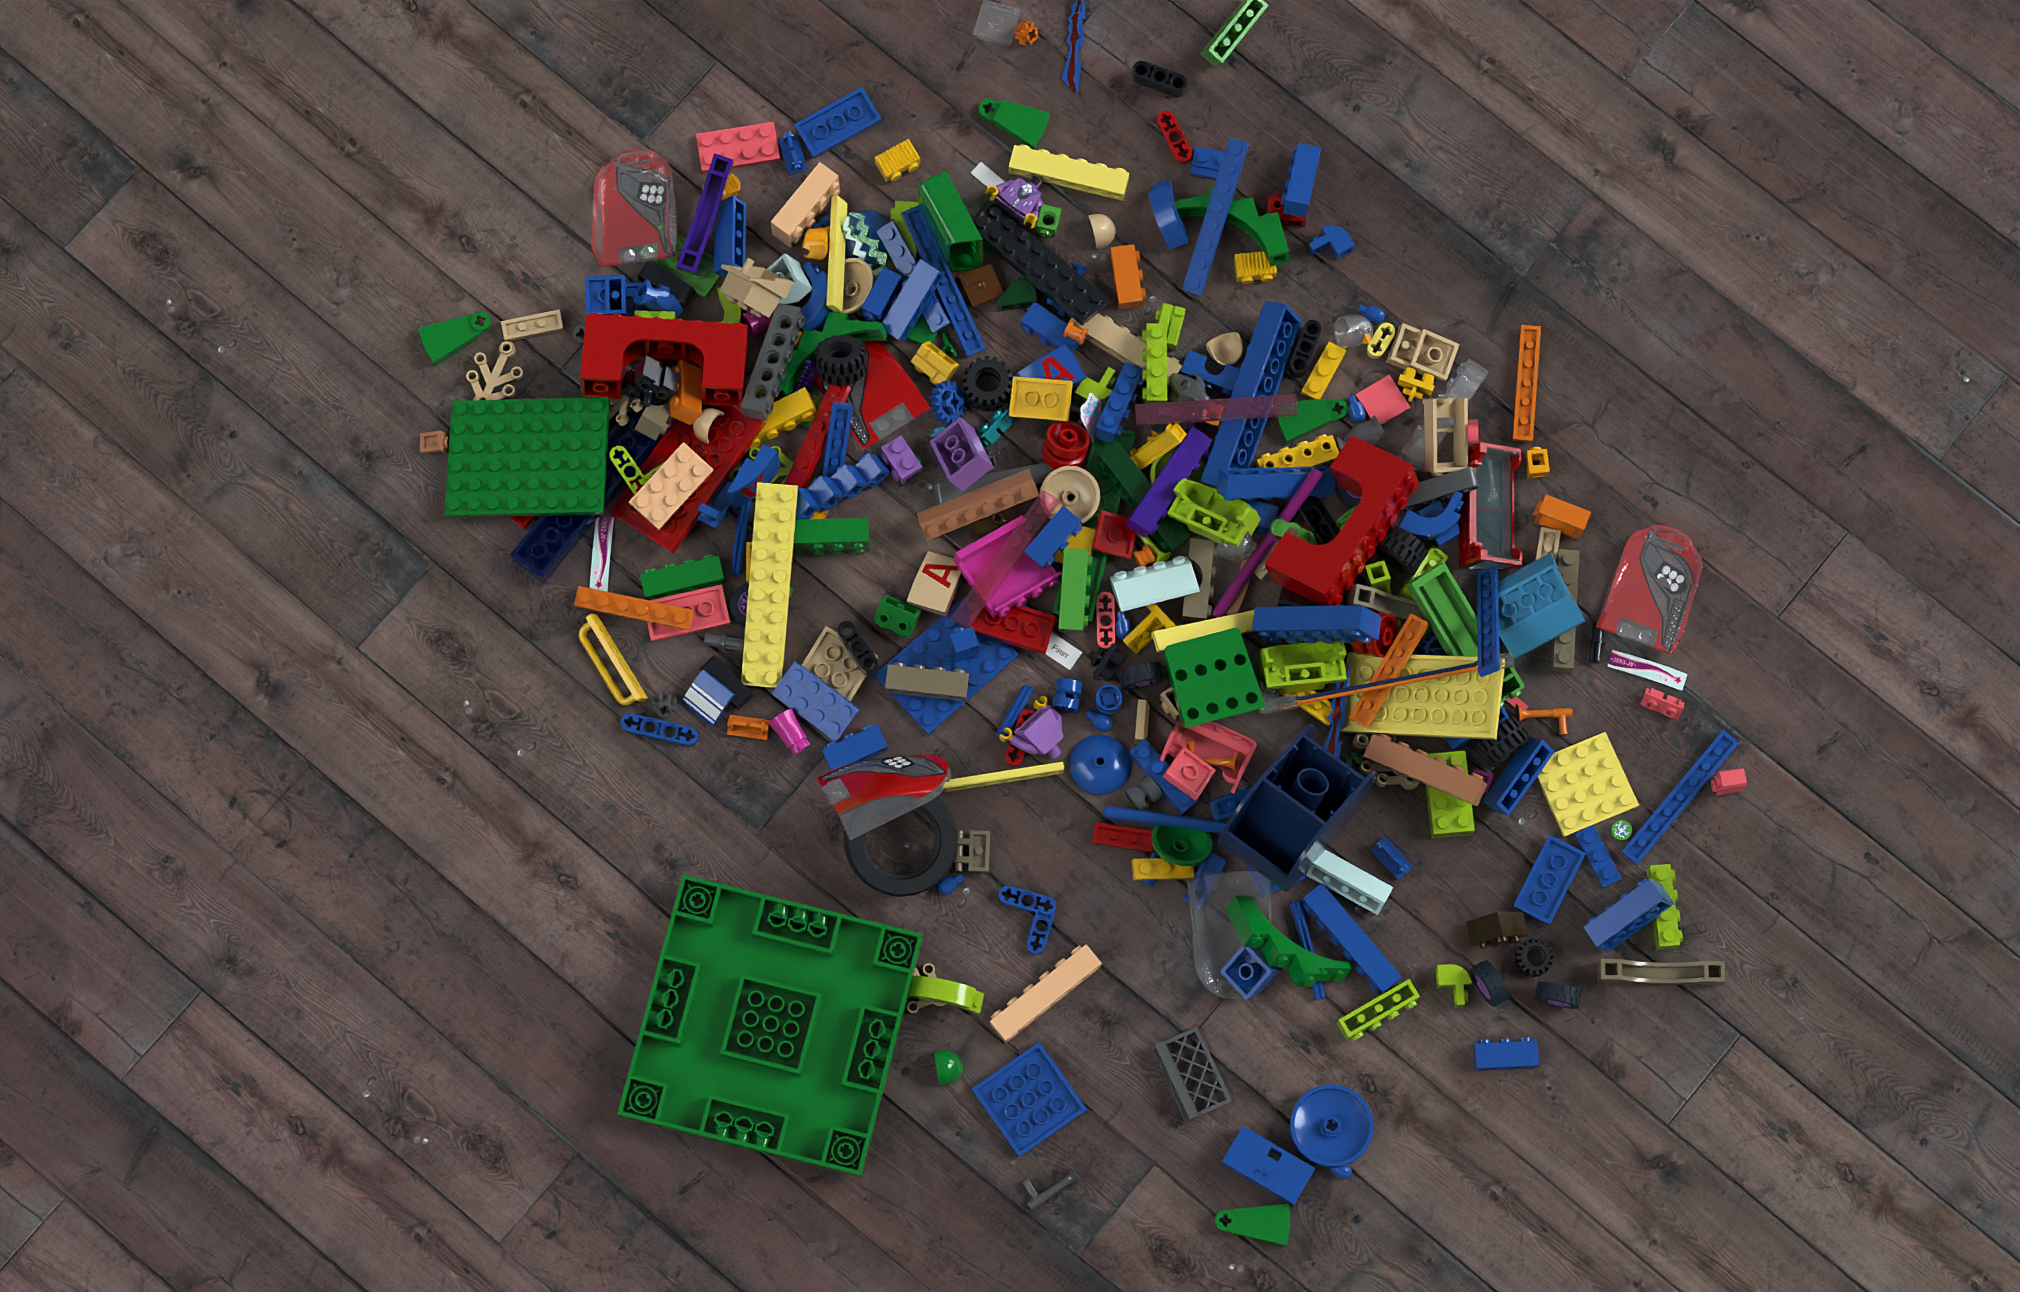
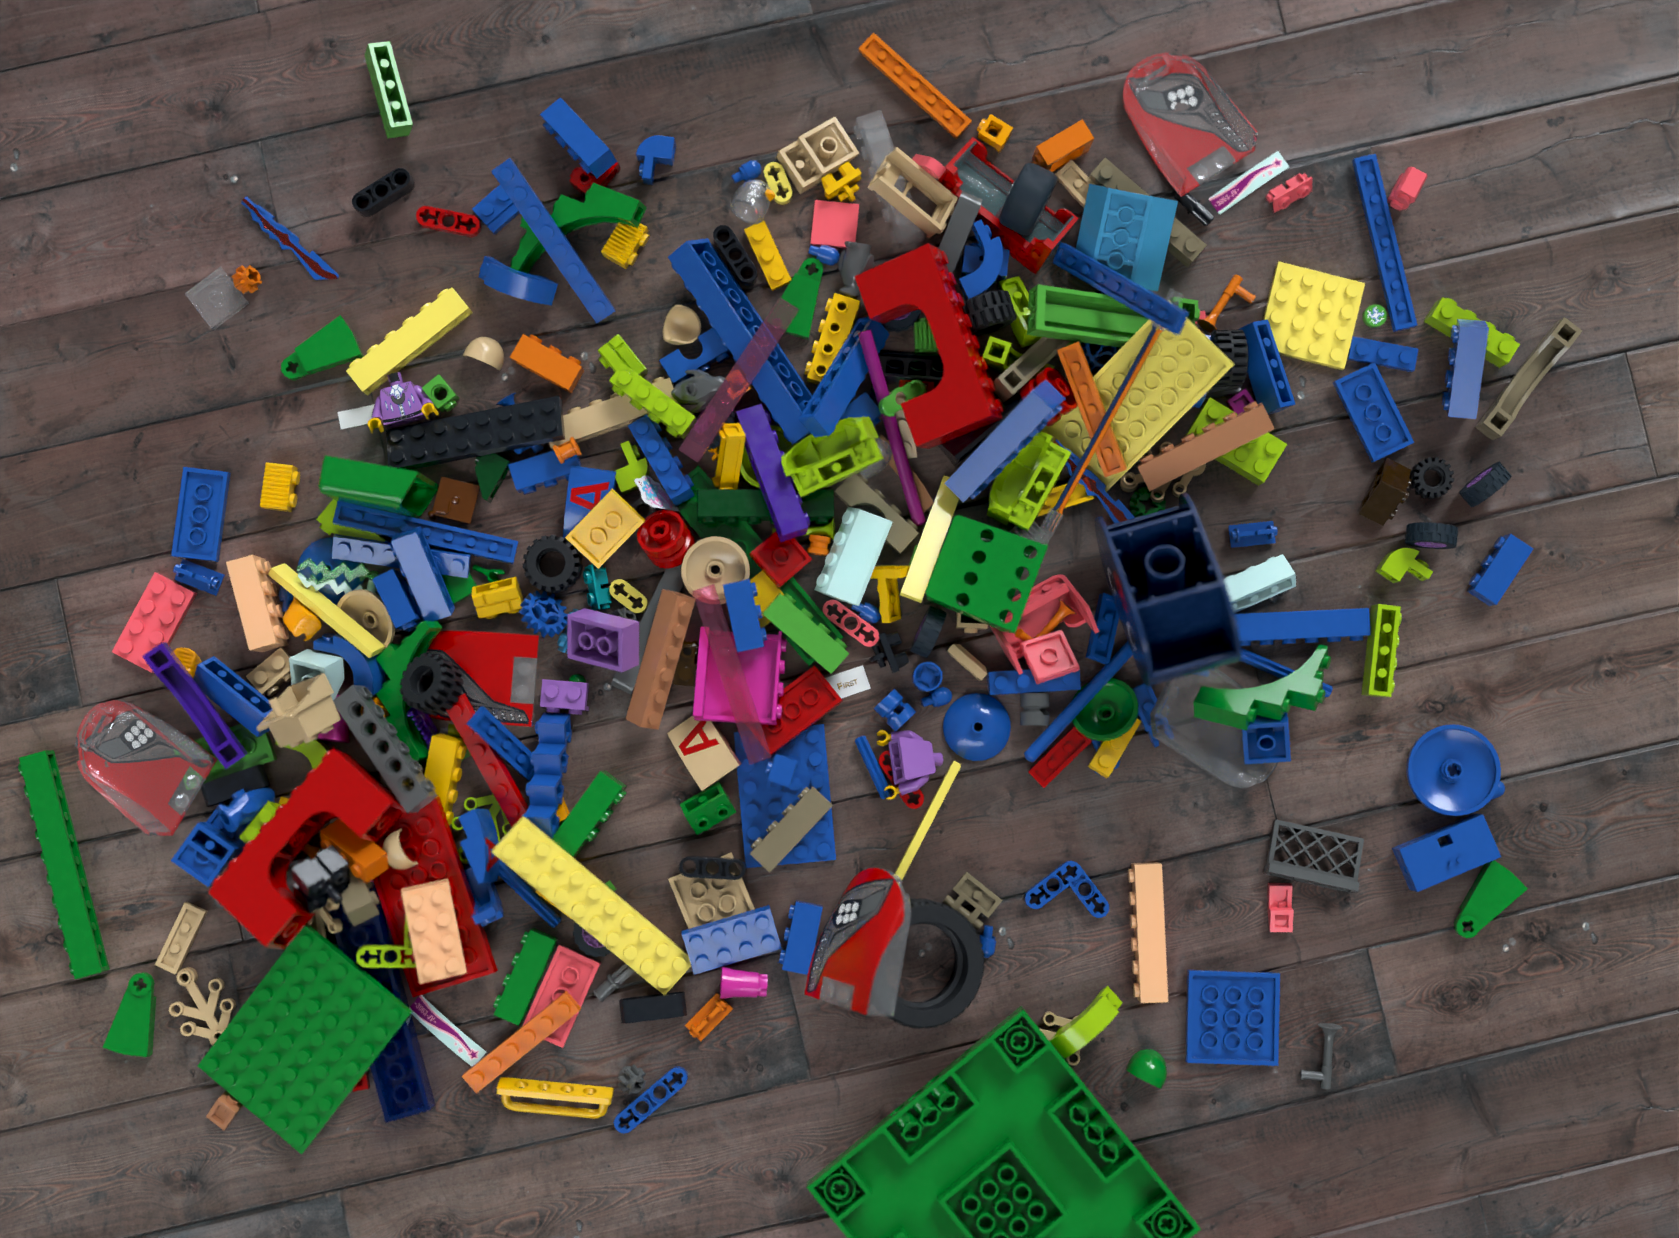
camera: 55 degrees left, 10 degrees up
(524, 210) = (63, 864): none -> green brick
(708, 697) = (655, 1035): slope -> none
(764, 250) = (271, 673): none -> tan bracket
(1000, 453) = (625, 600): none -> light yellow beam
(1135, 1077) = (1280, 907): none -> coral slope
(1504, 516) = (1027, 198): none -> black wheel

